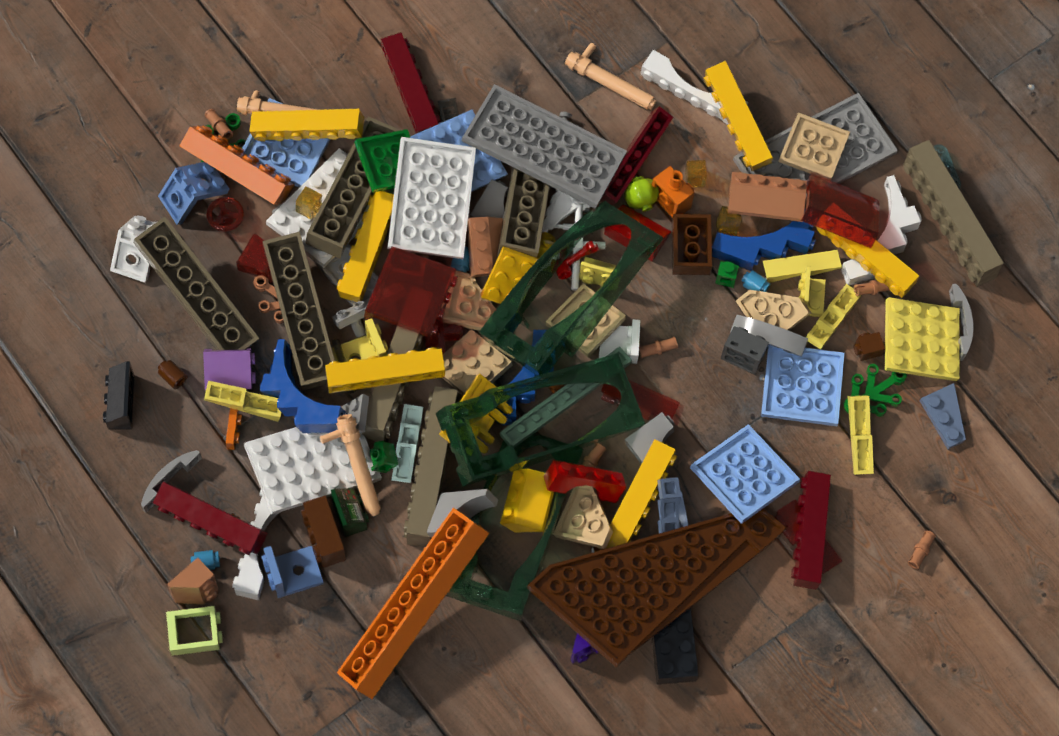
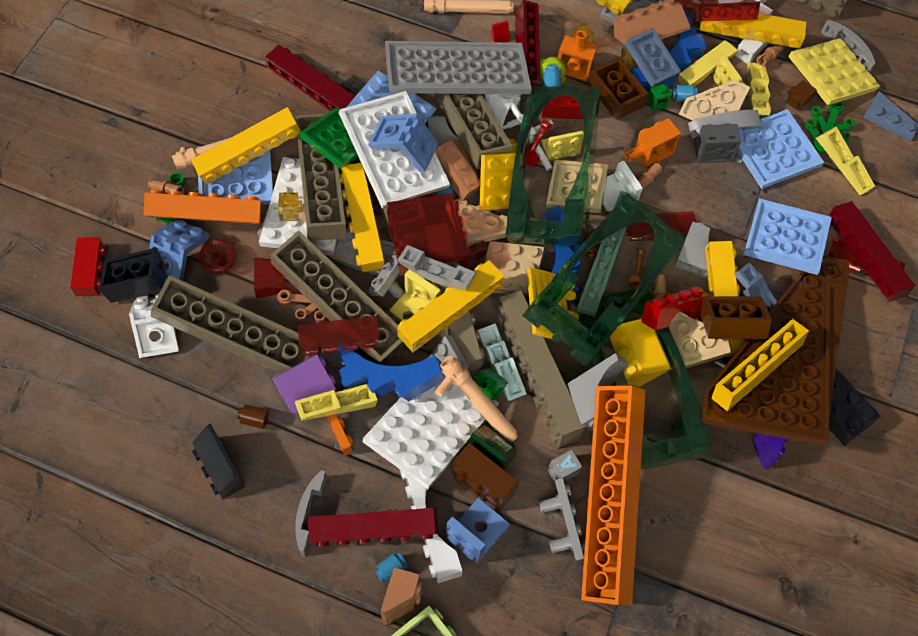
camera: 30 degrees left, 5 degrees down
(112, 164) = (87, 266): none -> red brick
(142, 194) = (132, 275): none -> black slope
(282, 342) = (343, 332): none -> clear red windscreen
(377, 598) = (572, 540): none -> light grey plate
(389, 331) = (434, 270): none -> light grey slope
(398, 562) = (565, 466): none -> light grey brick
(441, 196) = (409, 135): none -> medium blue bracket
(578, 434) = (635, 279): none -> dark orange hinge
(610, 568) = (759, 364): none -> yellow brick
(622, 126) = (500, 32): none -> red slope
(624, 518) = (735, 317): none -> reddish brown brick
(631, 201) = (552, 76): none -> dark azure brick
(683, 318) = (655, 143): none -> orange brick
(739, 232) = (652, 57): none -> sand blue plate

